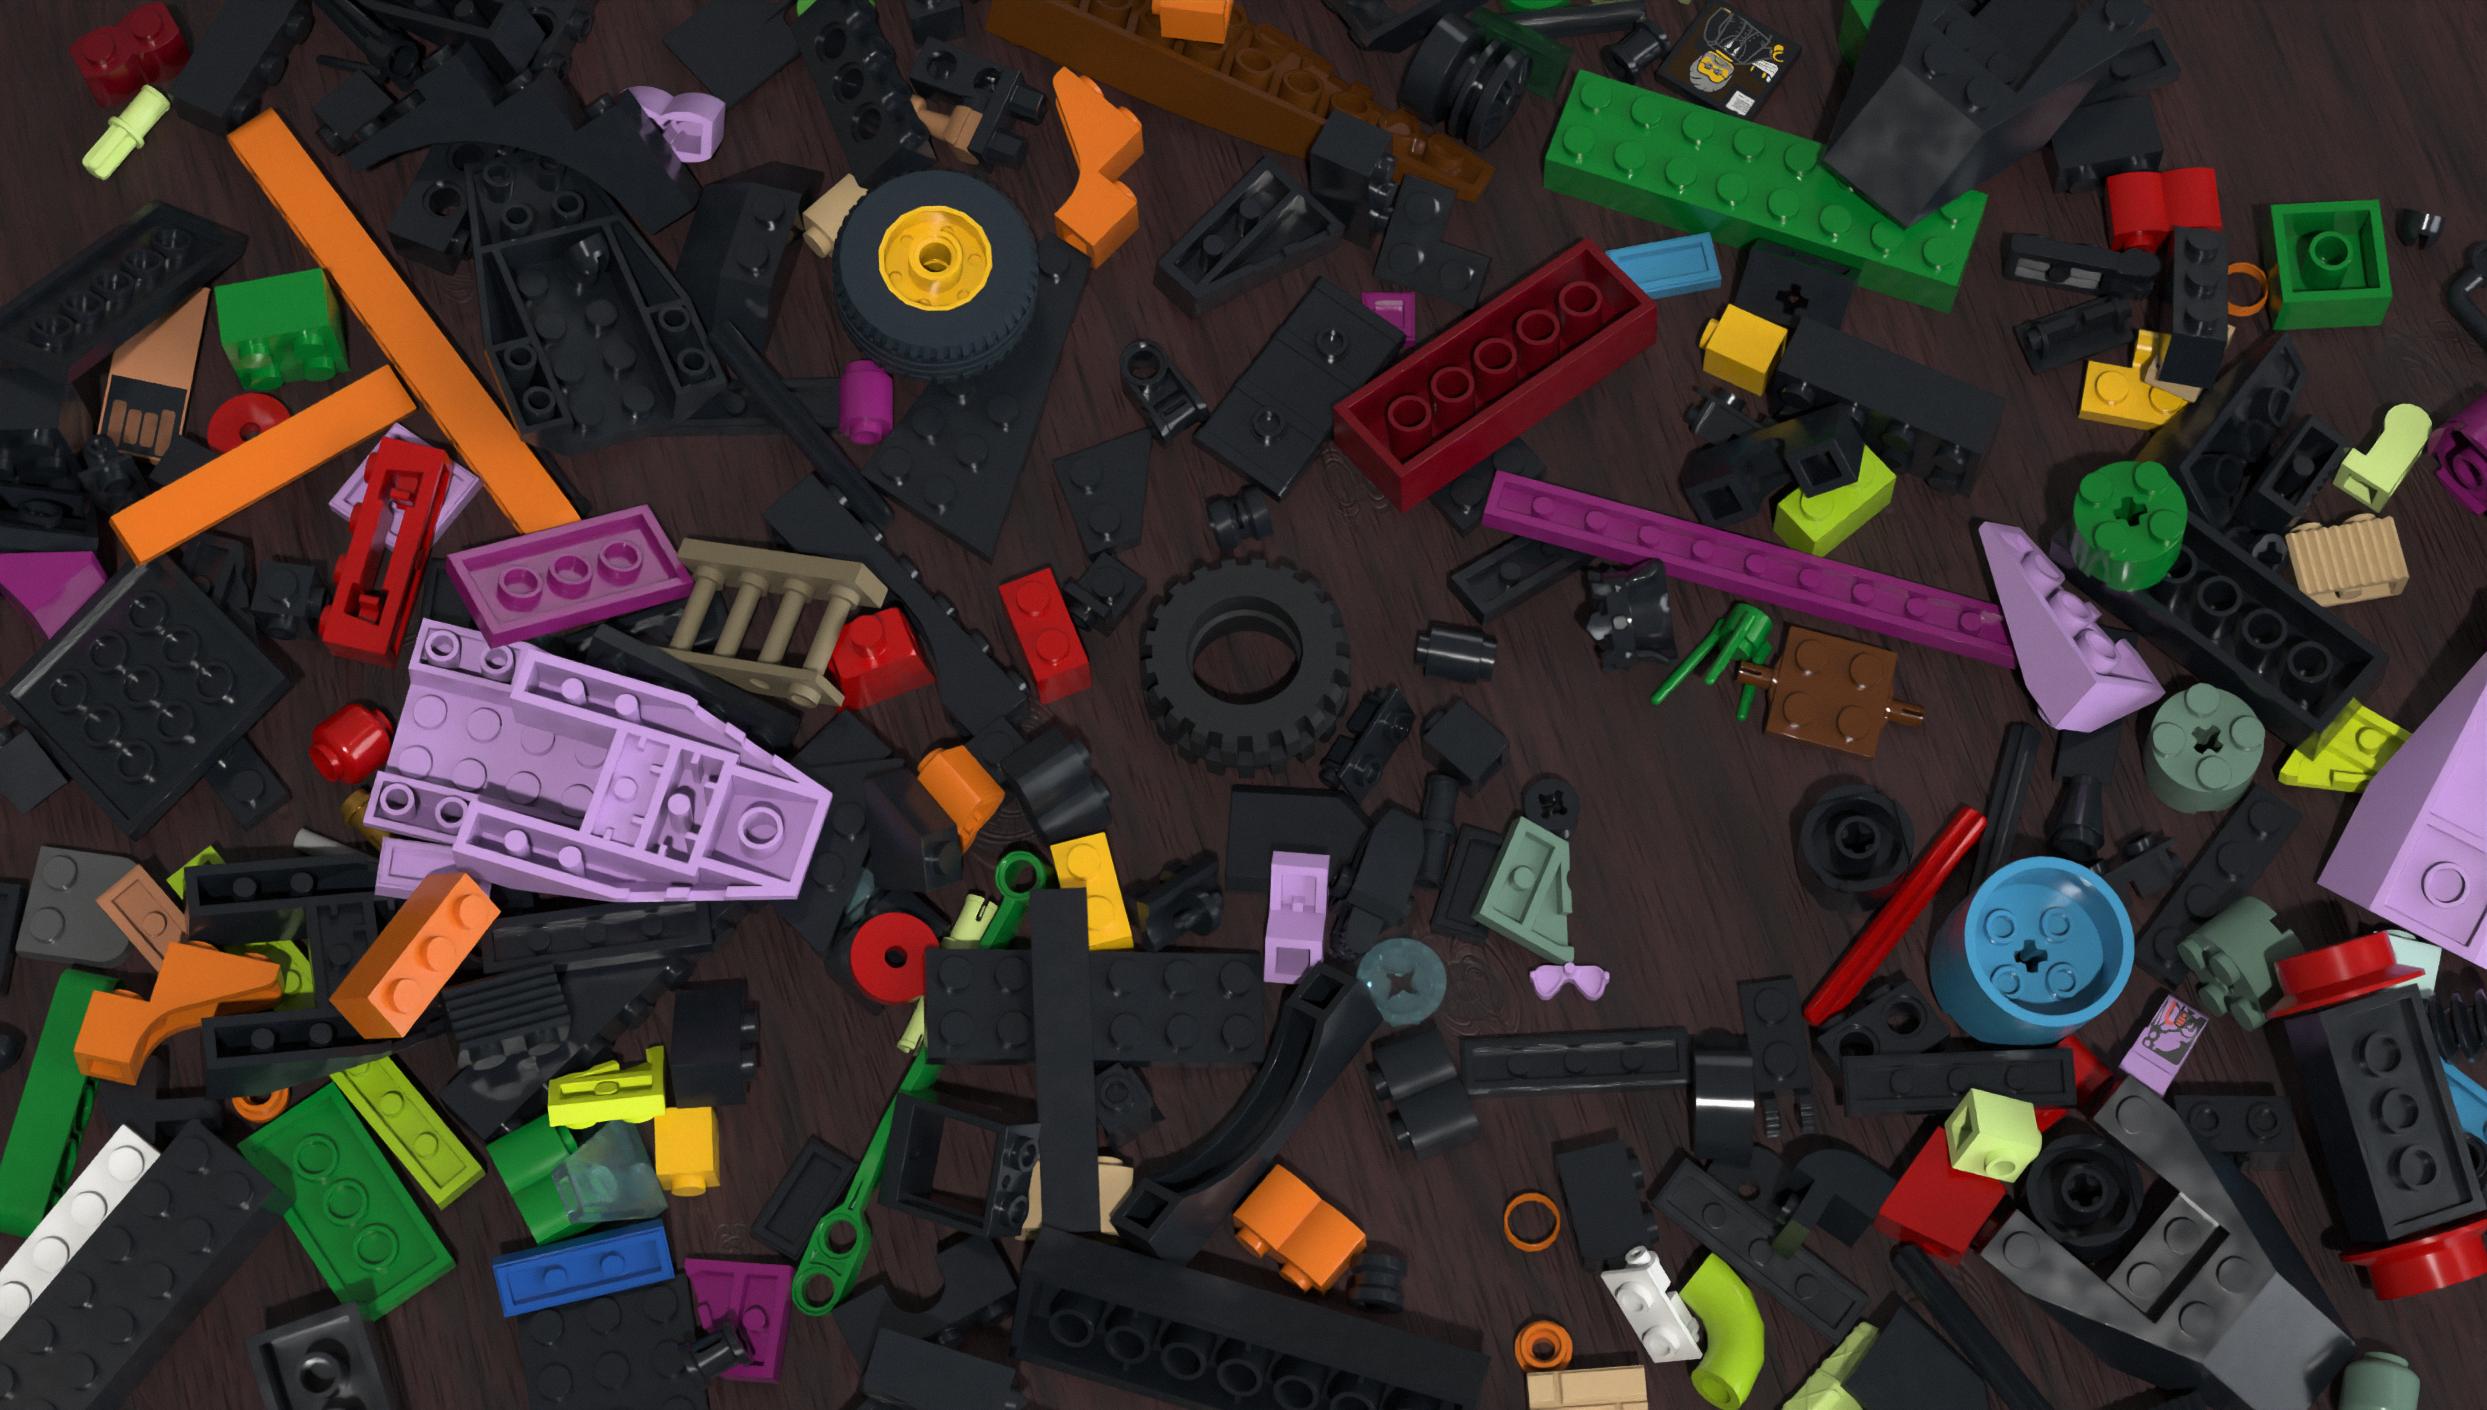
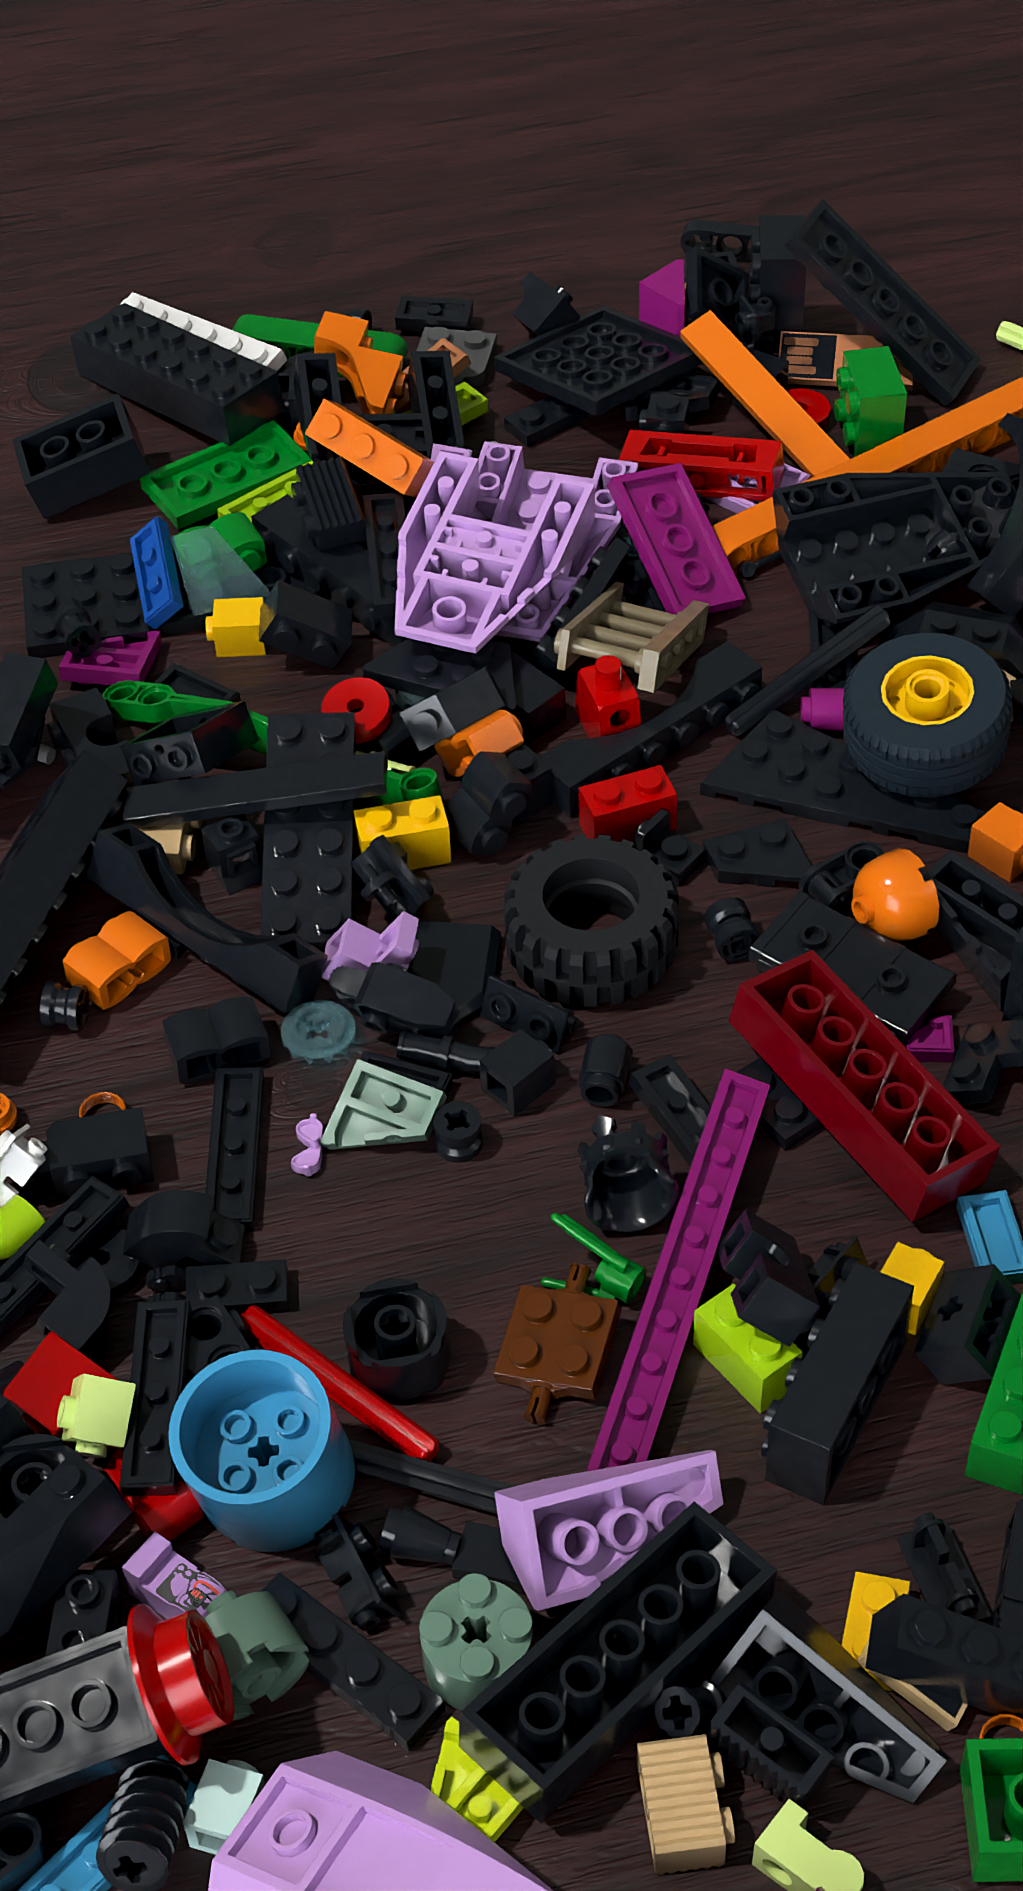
camera: 90 degrees right, 20 degrees down
(351, 744) = (558, 454): red head -> none
(610, 1094) = (271, 561): neon yellow wing -> none
(1213, 332) = (894, 897): none -> orange cylinder
(2128, 524) = (689, 1543): green brick -> none

